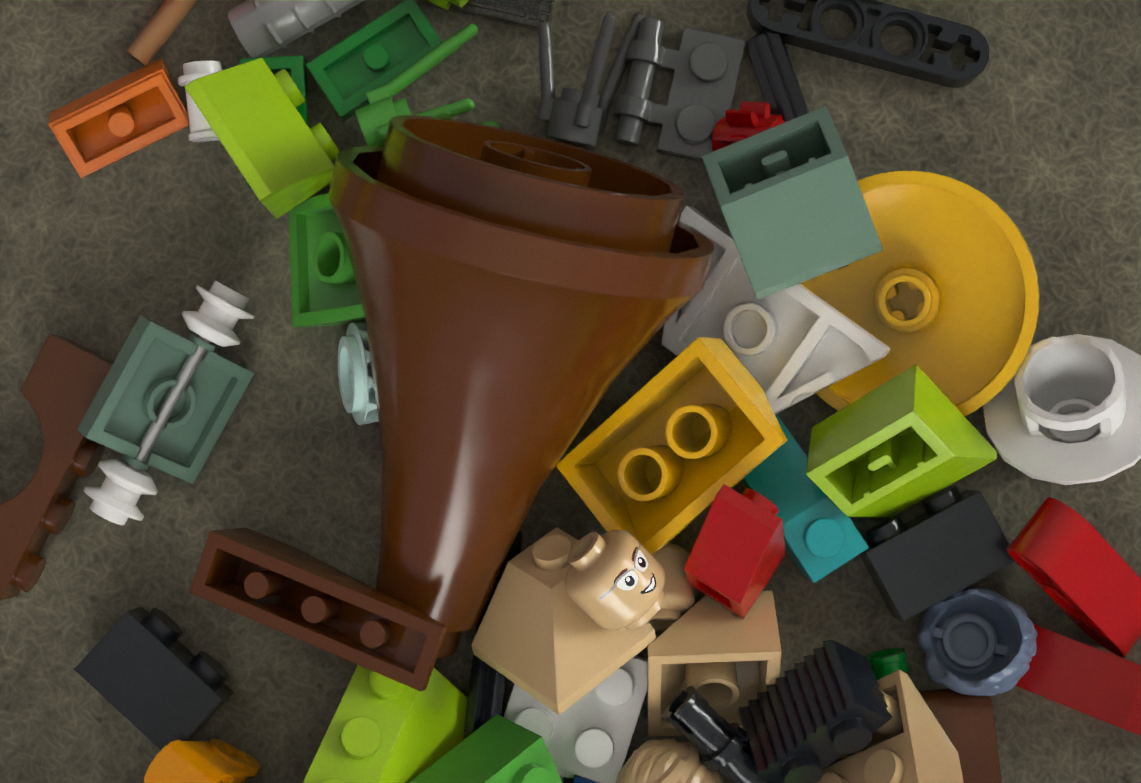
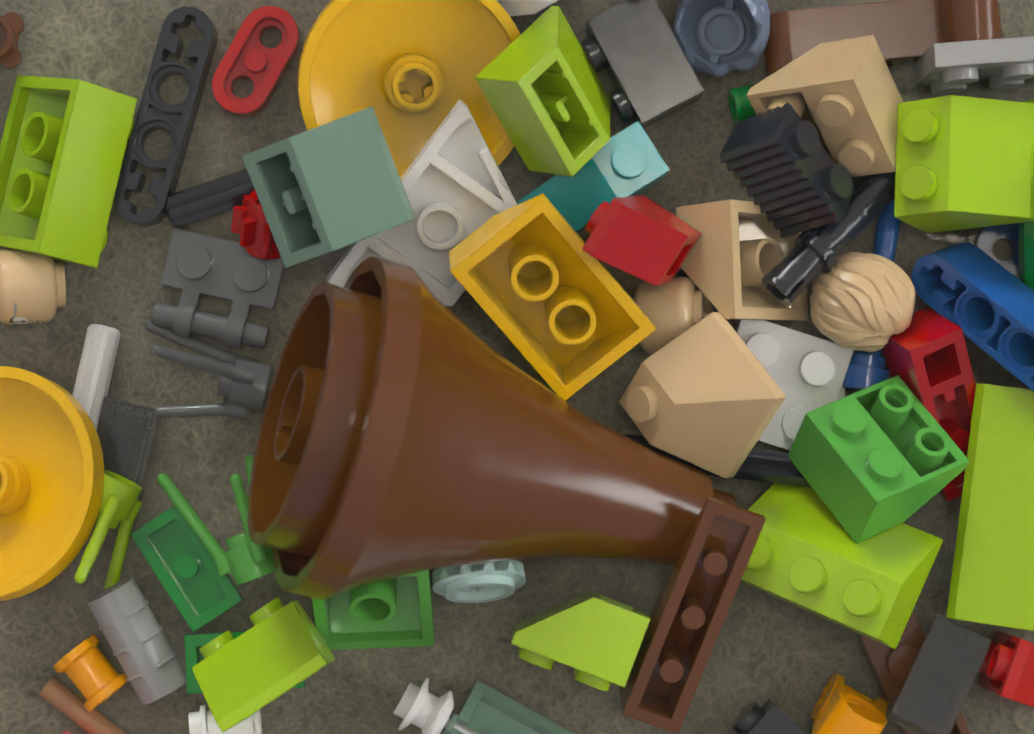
camera: 90 degrees left, 0 degrees up
(298, 491) = (586, 633): none -> lime slope
(615, 580) = (666, 346): tan head -> none
(929, 125) = (253, 61): none -> red plate

